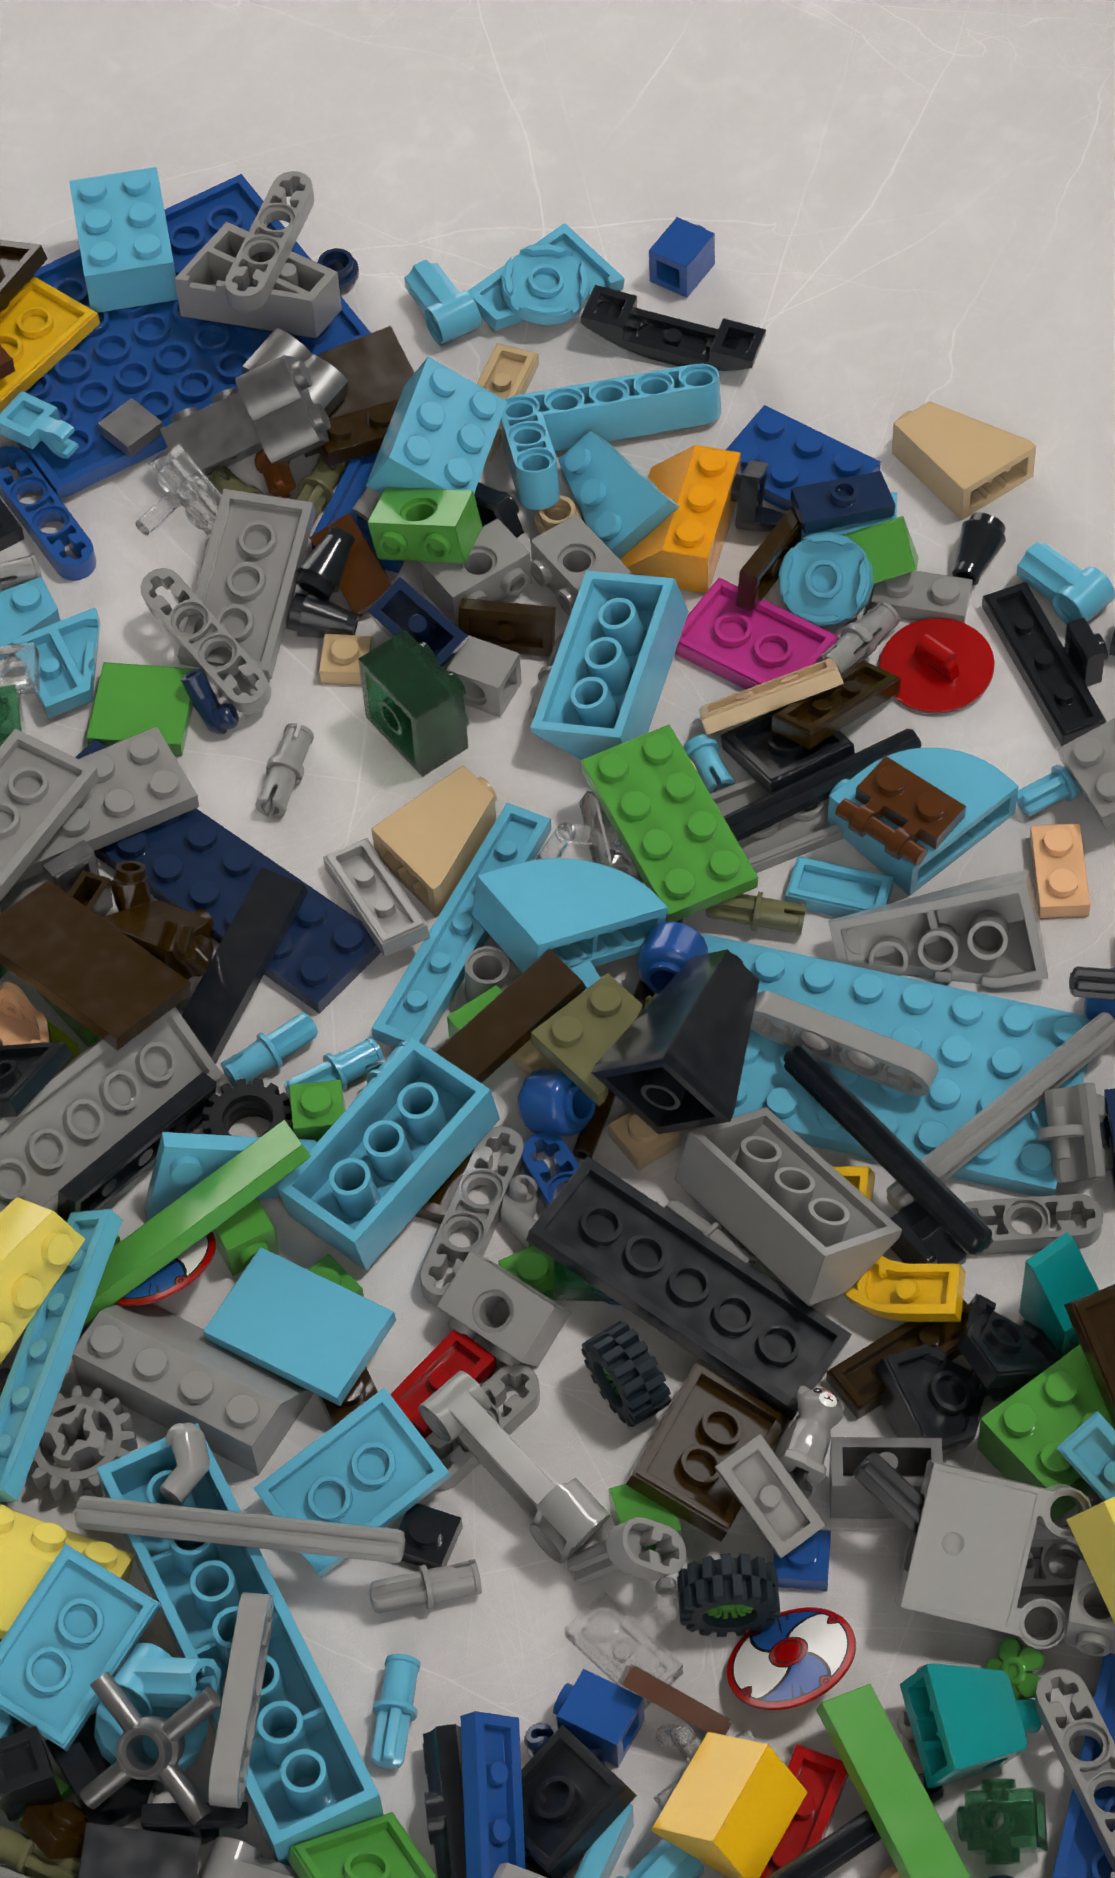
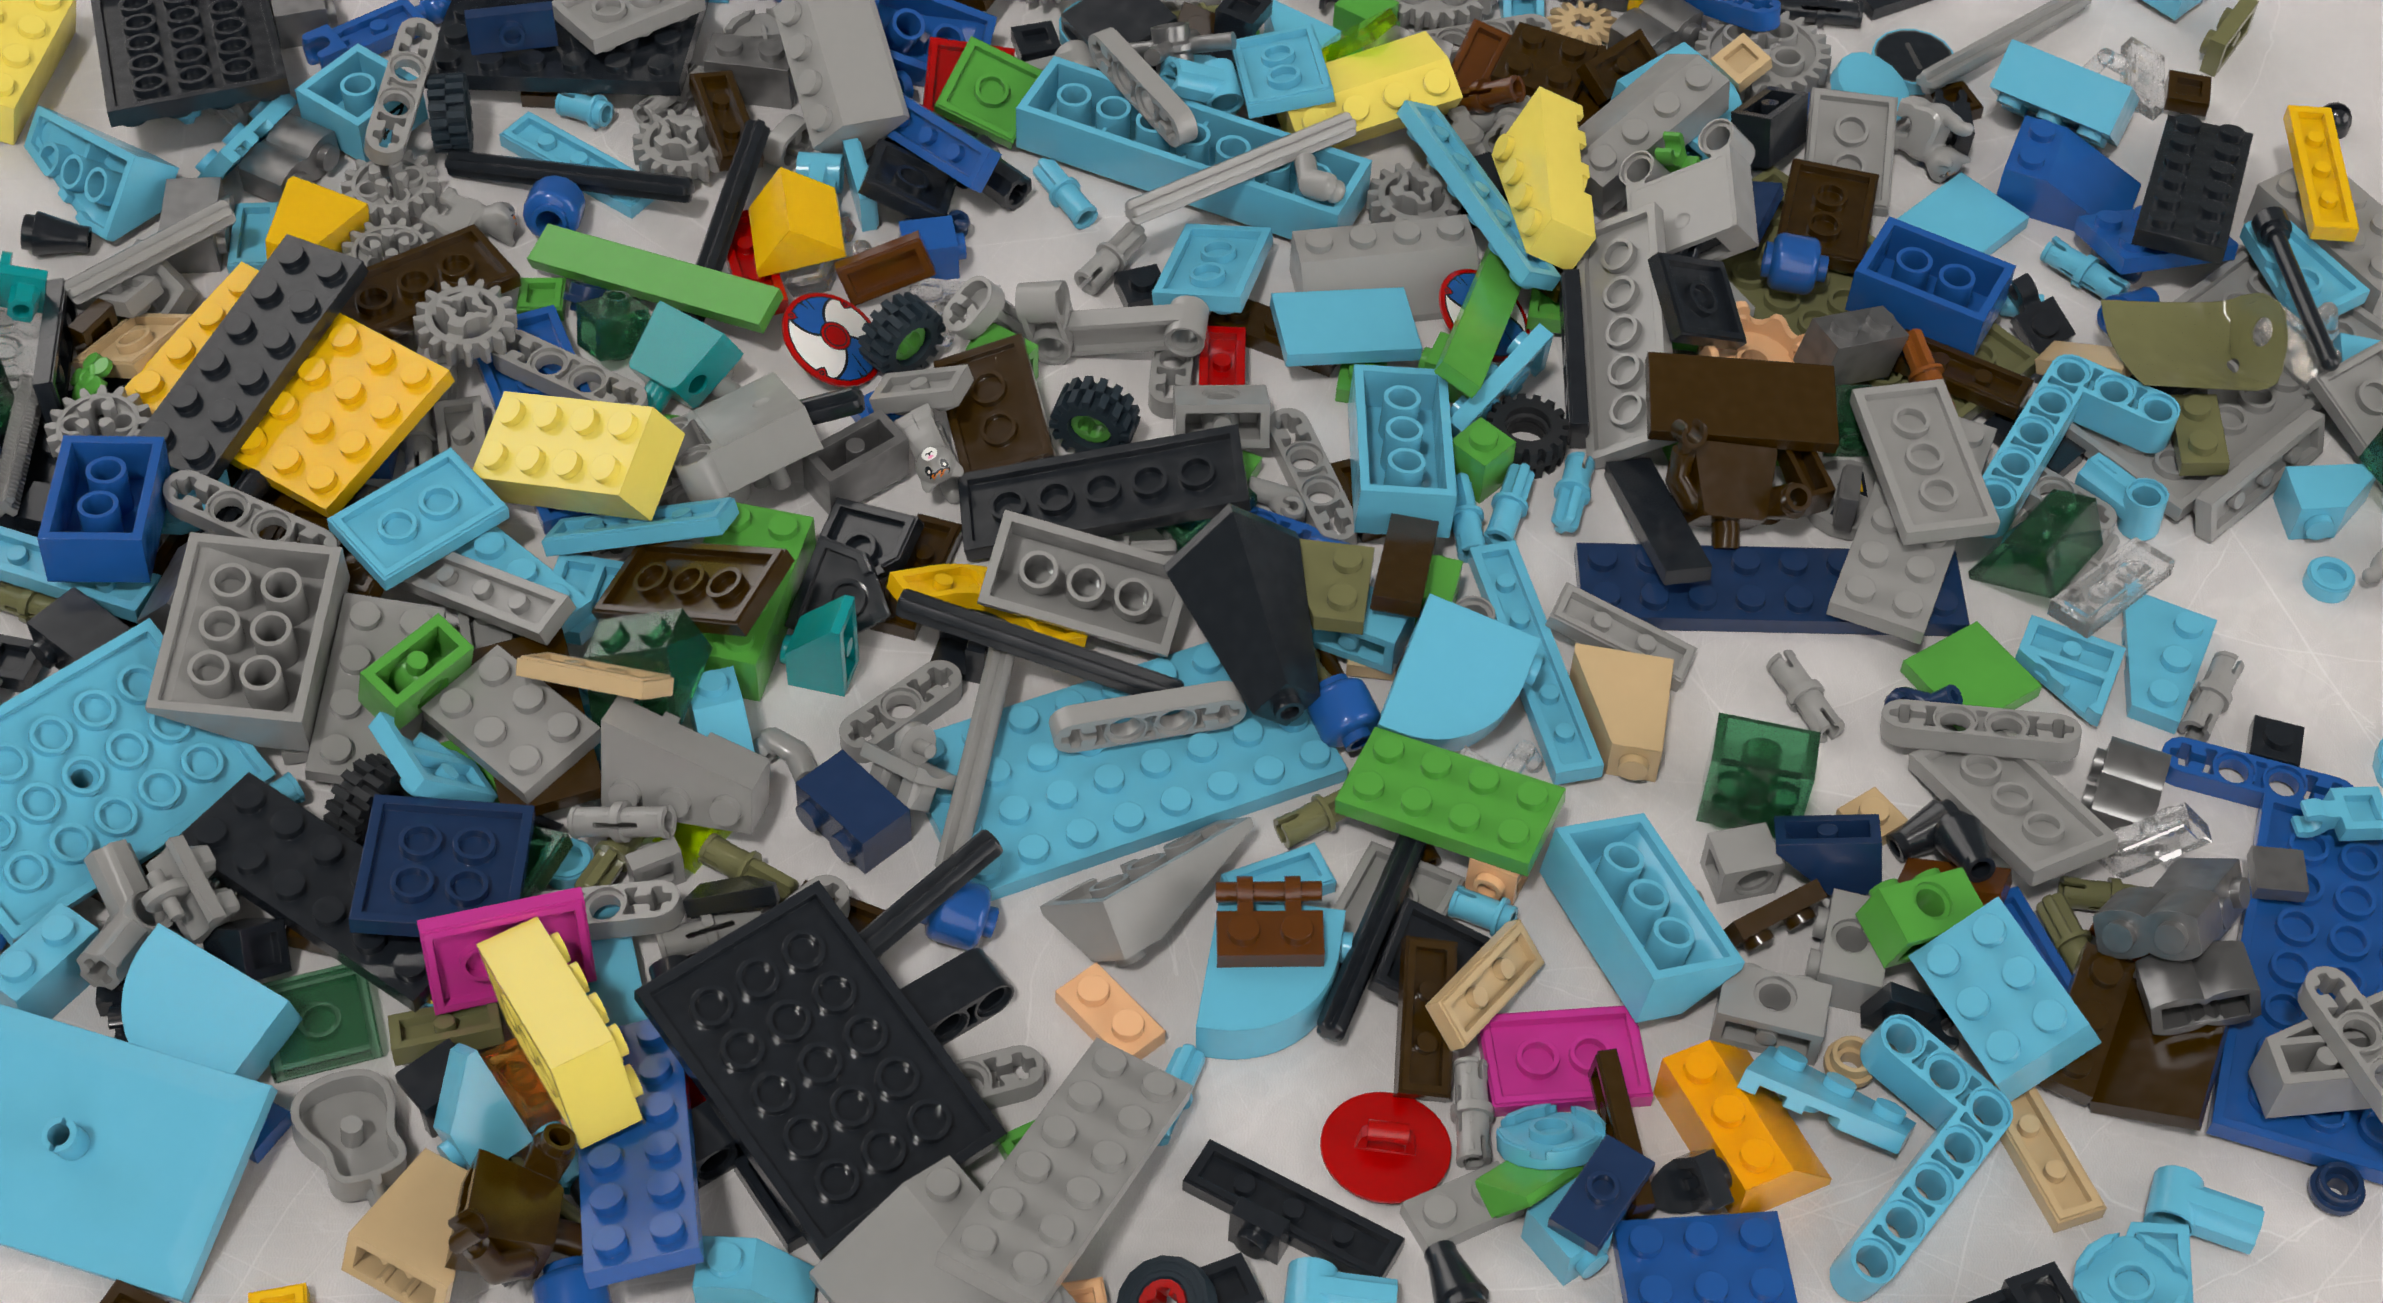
camera: 135 degrees right, 5 degrees down
(150, 543) = (2126, 783): none -> flat silver brick

